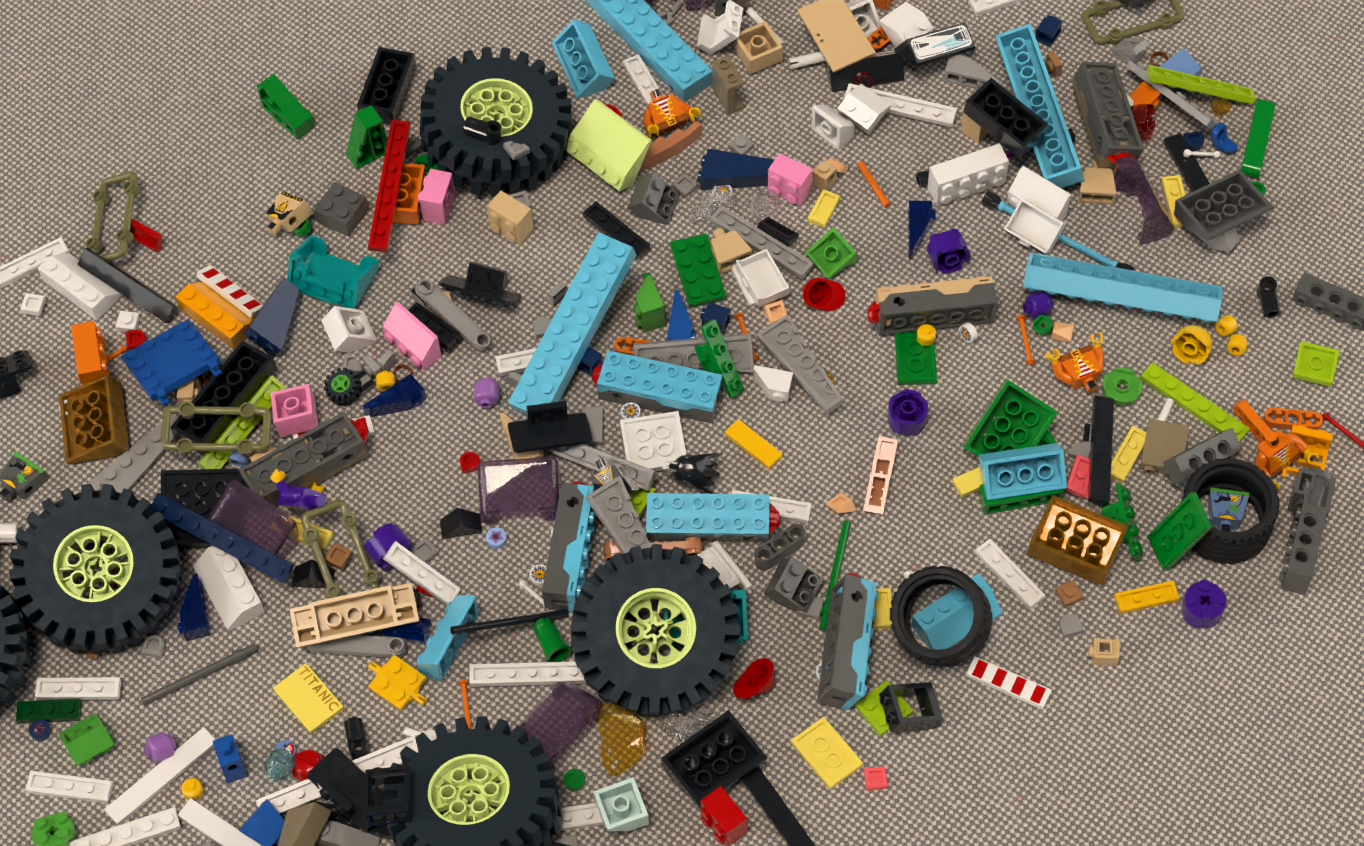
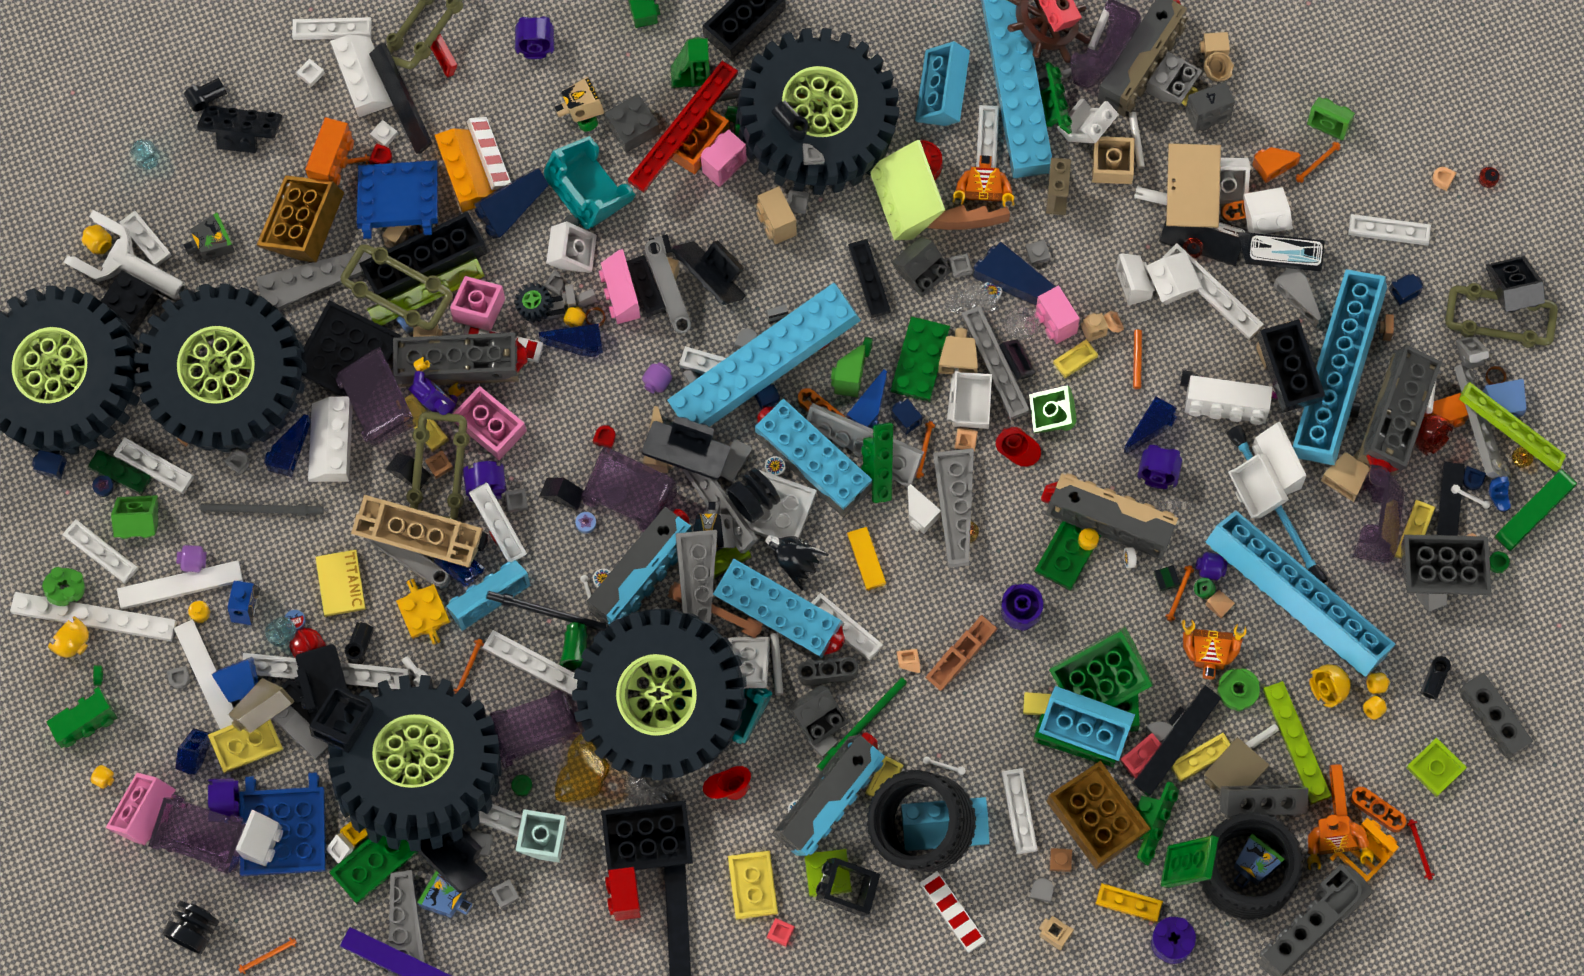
camera: 30 degrees right, 10 degrees up
(216, 182) = (534, 37): none -> dark purple brick
(223, 538) = (343, 395): dark blue plate -> none
(366, 497) = (491, 423): none -> bright pink brick
(630, 437) = (750, 497): none -> black wheel
(684, 28) = (1054, 101): none -> green bracket
(1007, 334) = (1166, 578): none -> tile

